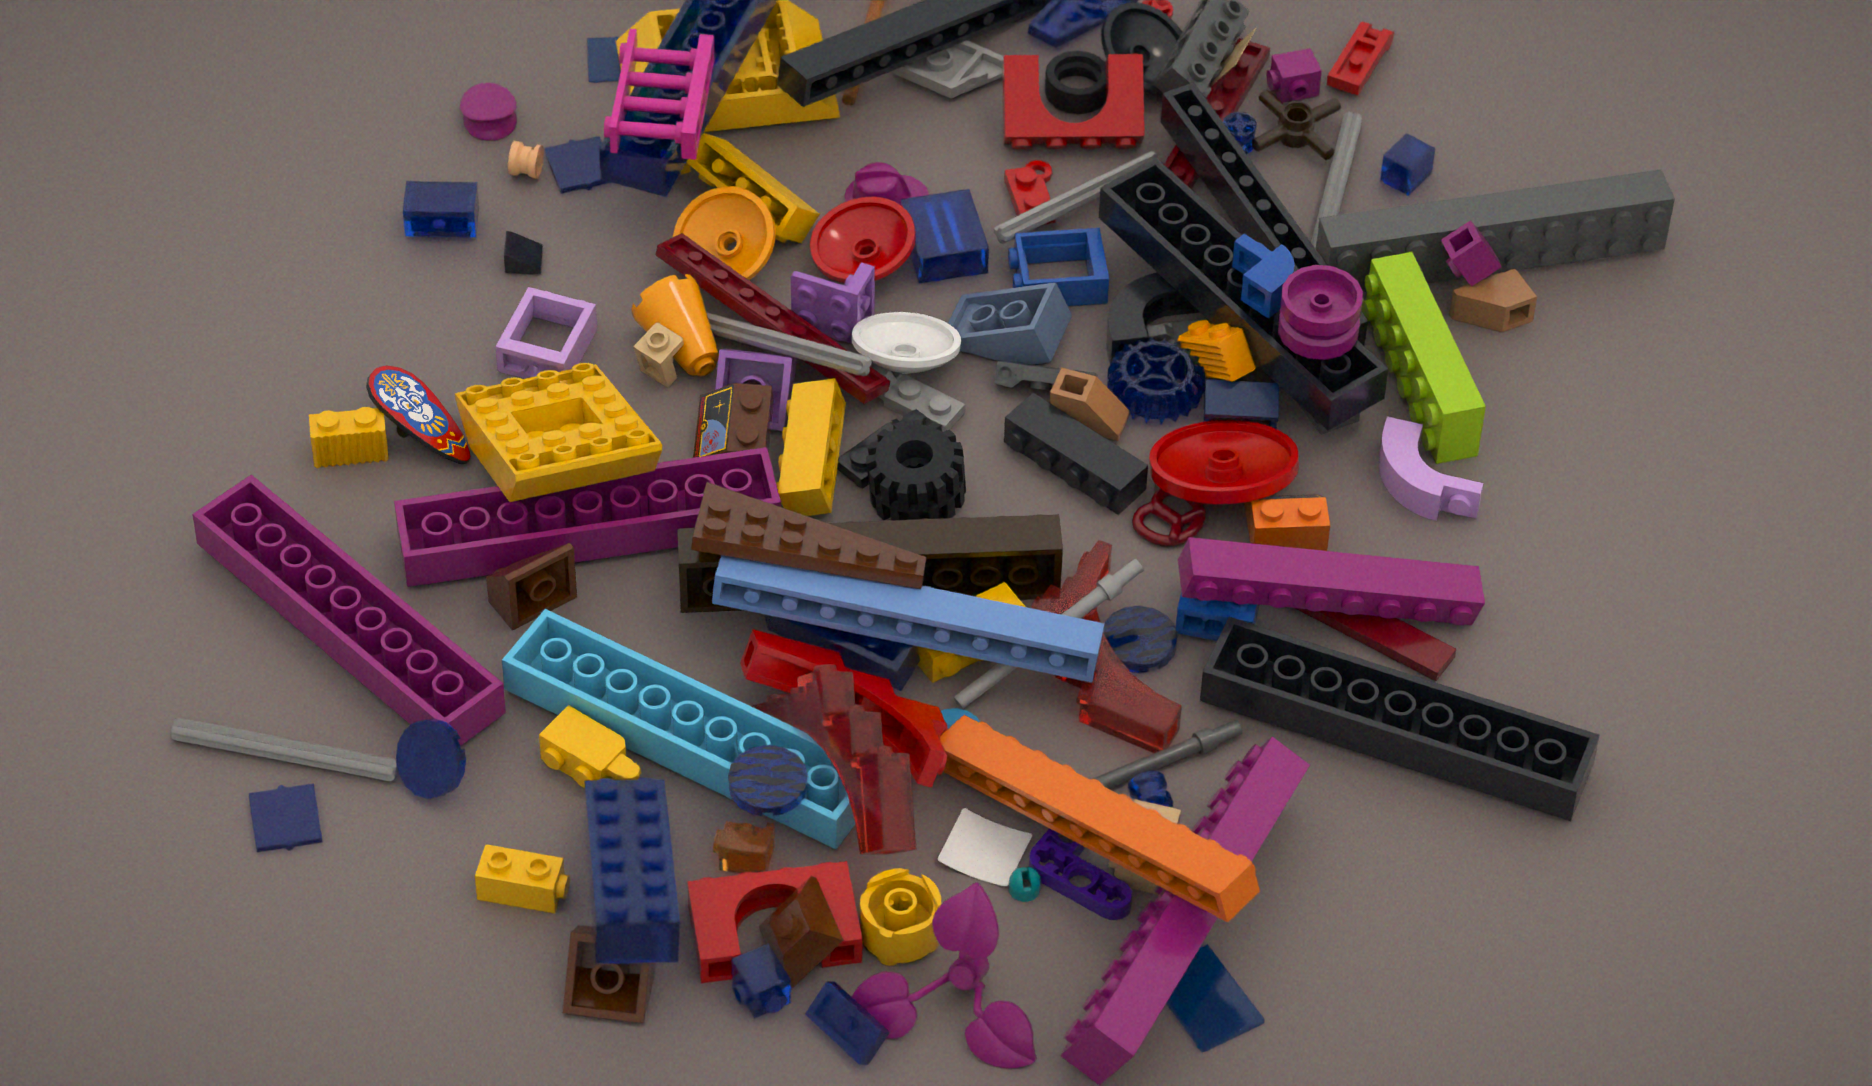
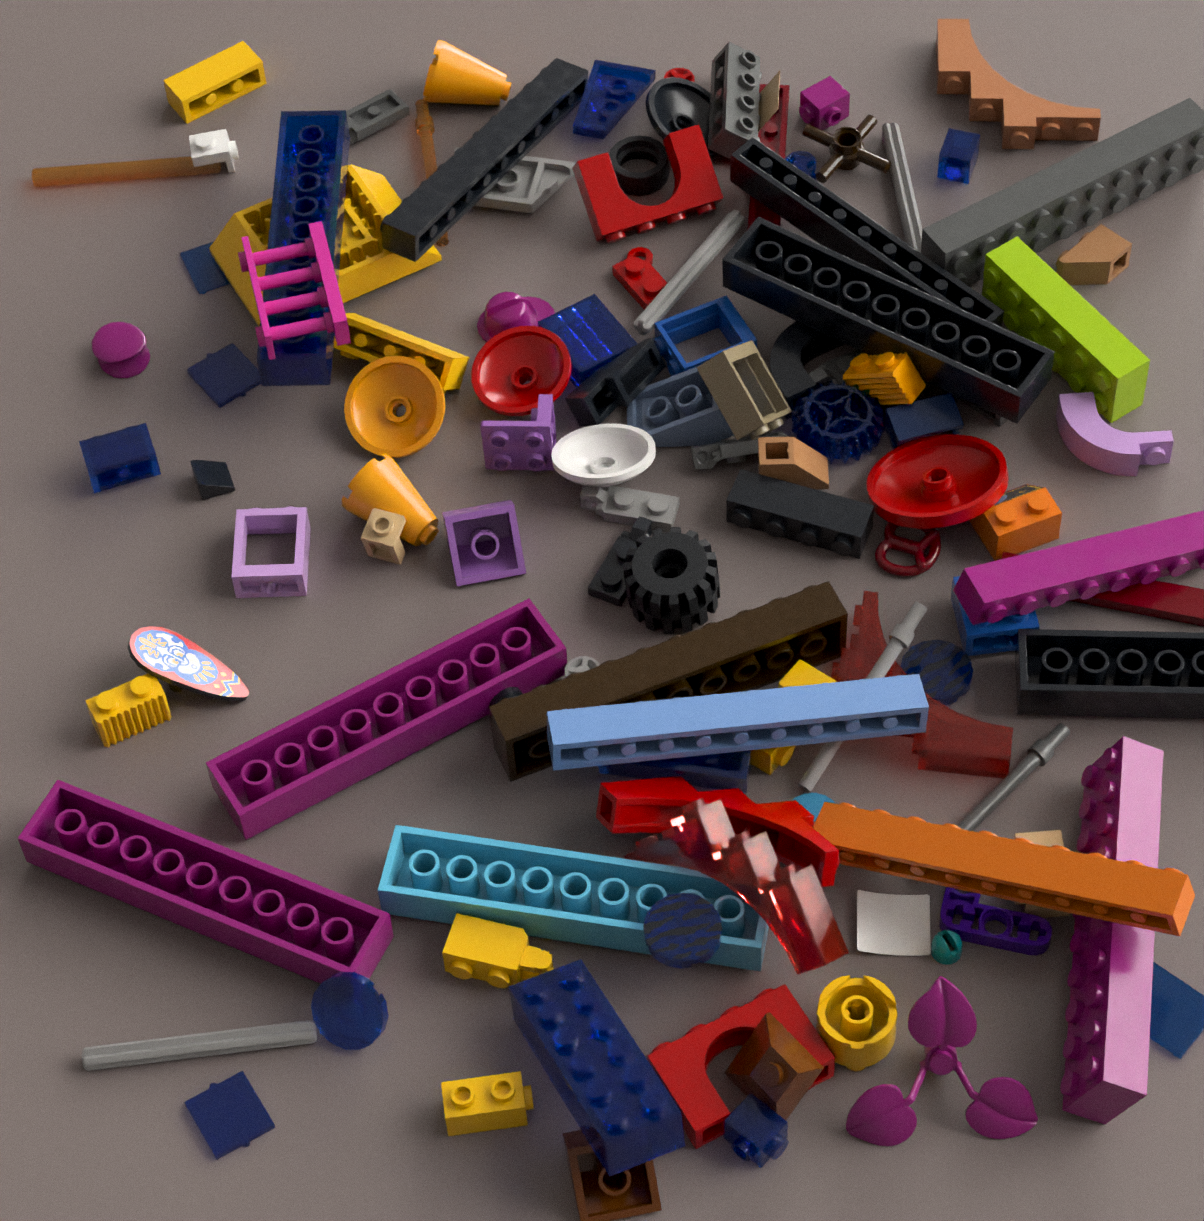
camera: 15 degrees left, 5 degrees up
(525, 160) = (176, 386): light nougat wheel -> none
(532, 585) = (366, 802): reddish brown slope -> none
(555, 432) = (328, 645): yellow slope -> none
(734, 419) = (482, 583): slope -> none
(744, 847) = (679, 1000): clear orange brick -> none
(761, 309) = (473, 470): dark red tile -> none
(767, 533) = (582, 687): reddish brown wing -> none
(789, 345) = (506, 492): light grey axle -> none
(811, 447) = (564, 584): yellow brick -> none
(847, 1023) = (854, 1145): clear blue plate -> none
(952, 279) = (615, 383): none -> black slope
(1086, 316) = (745, 391): none -> dark tan window
(1151, 788) = (1019, 818): clear blue wheel -> none
(1262, 273) = (913, 294): blue brick -> none
(1320, 312) = (979, 318): magenta wheel -> none
(1359, 58) = (870, 72): red plate -> none
(1470, 118) = (994, 99): none -> nougat arch
(1470, 254) = (1064, 223): magenta brick -> none

